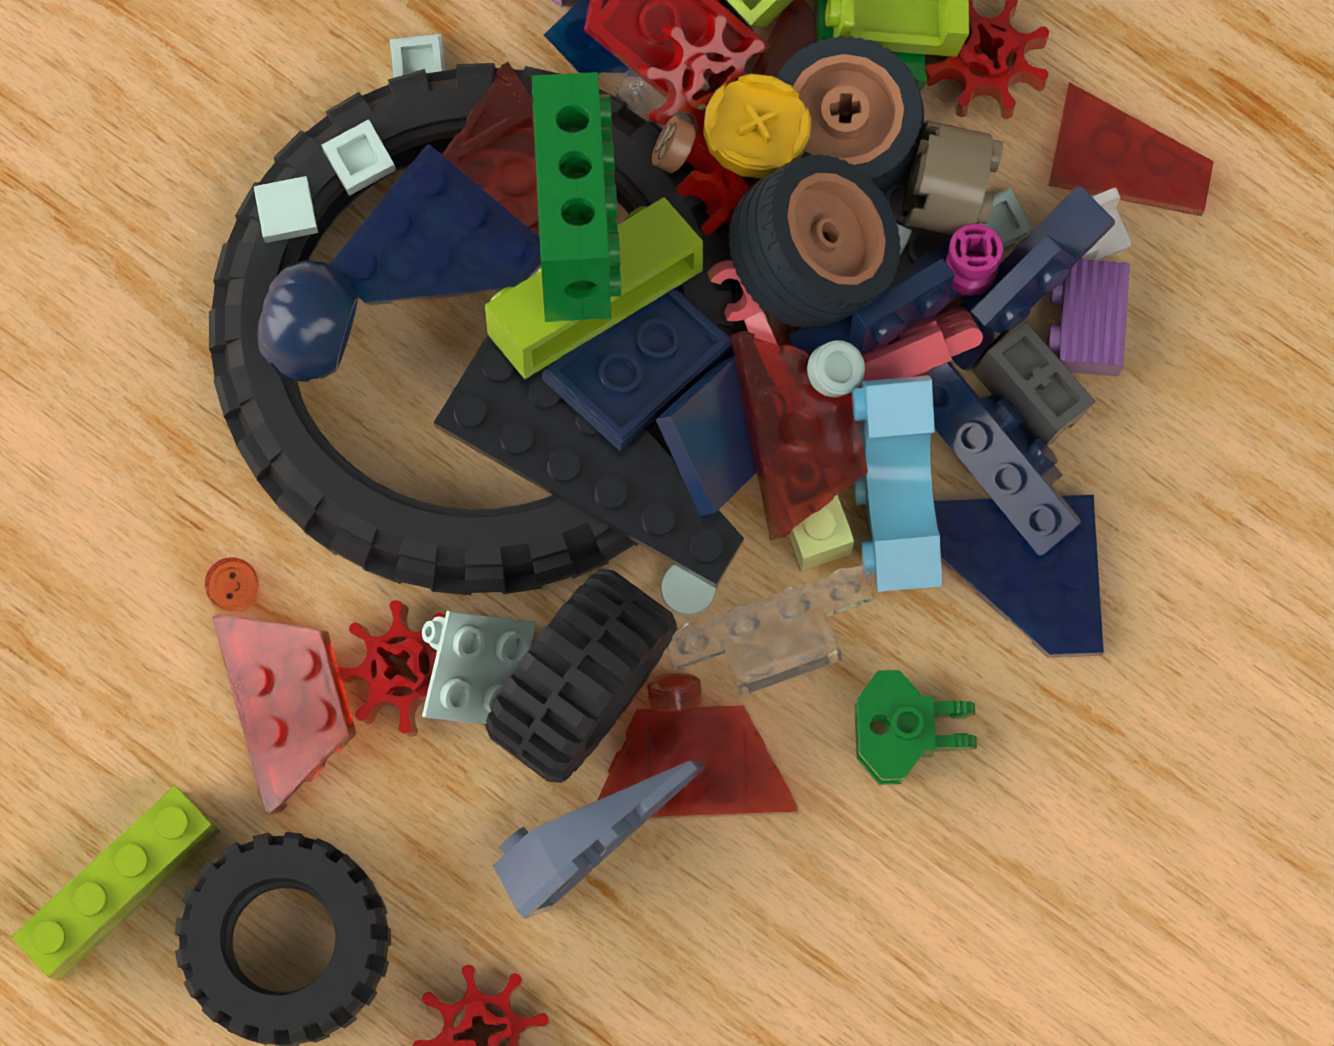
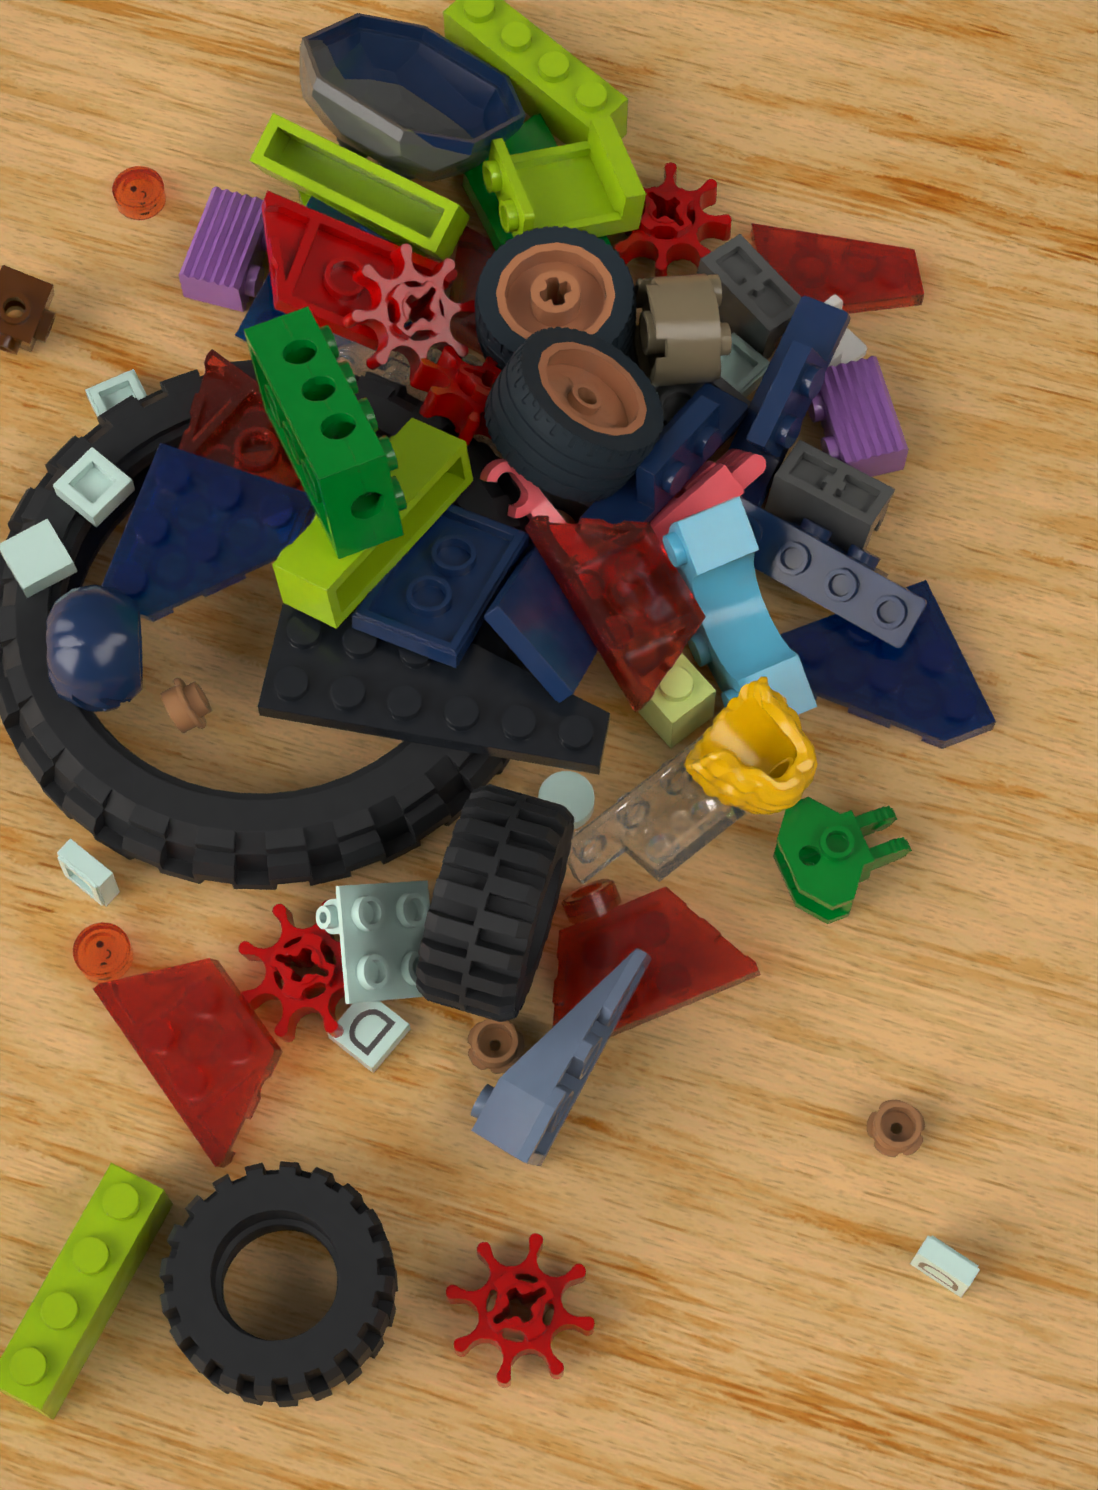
camera: 20 degrees left, 10 degrees down
(241, 509) = (87, 873): none -> light aqua tile
(371, 399) = (186, 705): none -> medium nougat plate
(440, 743) = (370, 1033): none -> light aqua tile
(543, 806) = (488, 1031): none -> medium nougat plate
(673, 145) = (402, 376): nougat tile -> none
(756, 125) = (475, 329): yellow tile -> none
(836, 368) = (638, 526): light aqua tile -> none
(862, 616) = (754, 753): none -> yellow hair
(871, 976) = (898, 1113): none -> medium nougat plate
(974, 271) = (733, 385): dark pink wheel -> none
(1035, 156) = (754, 295): none -> dark grey hinge

